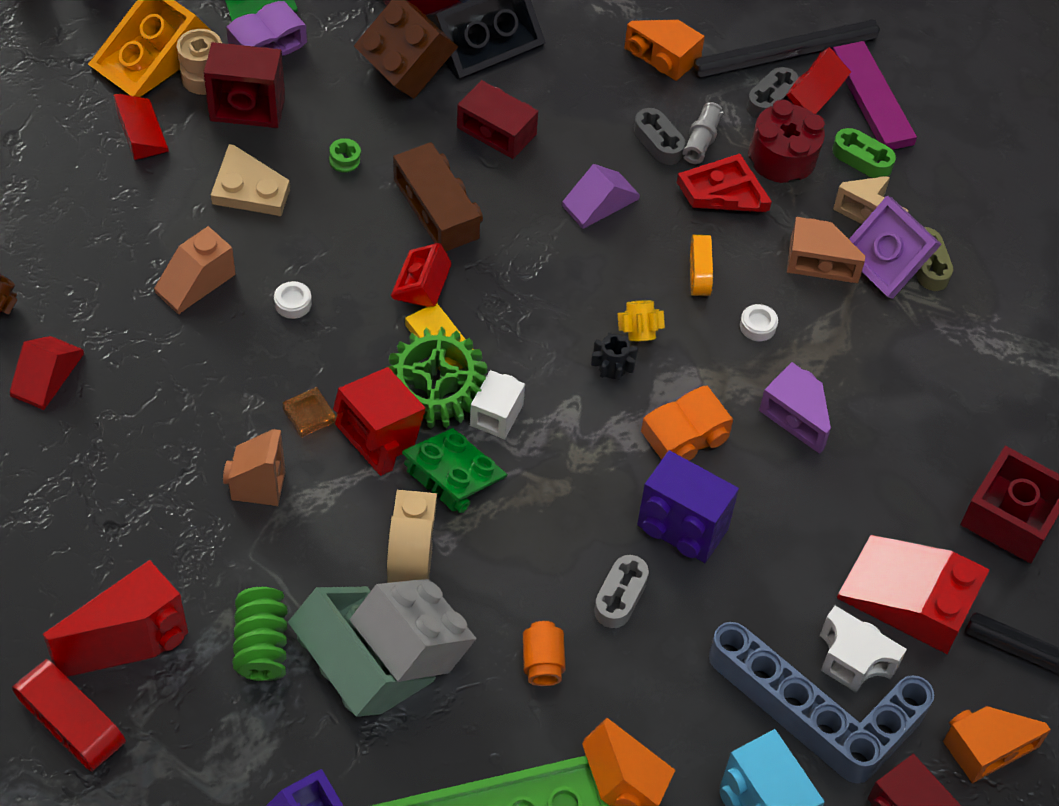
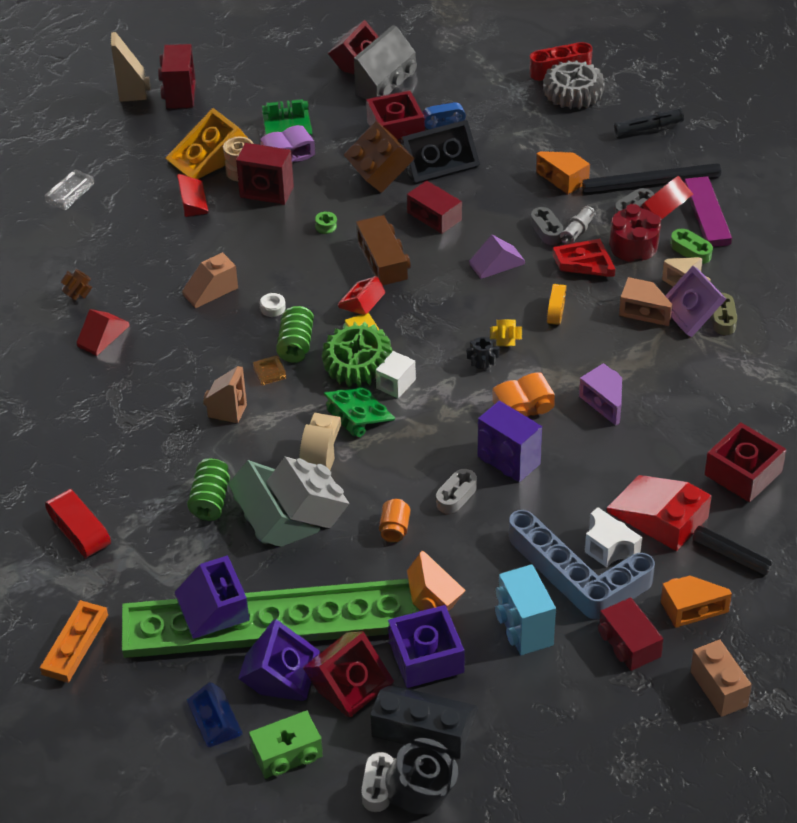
camera: 15 degrees right, 10 degrees down
(121, 625) = (118, 473): red slope -> none
(249, 184) = (257, 235): tan wing -> none
(337, 349) = (295, 334): none -> bright green piece
(379, 417) = (312, 372): red plate -> none
(758, 322) = (590, 343): white tile -> none

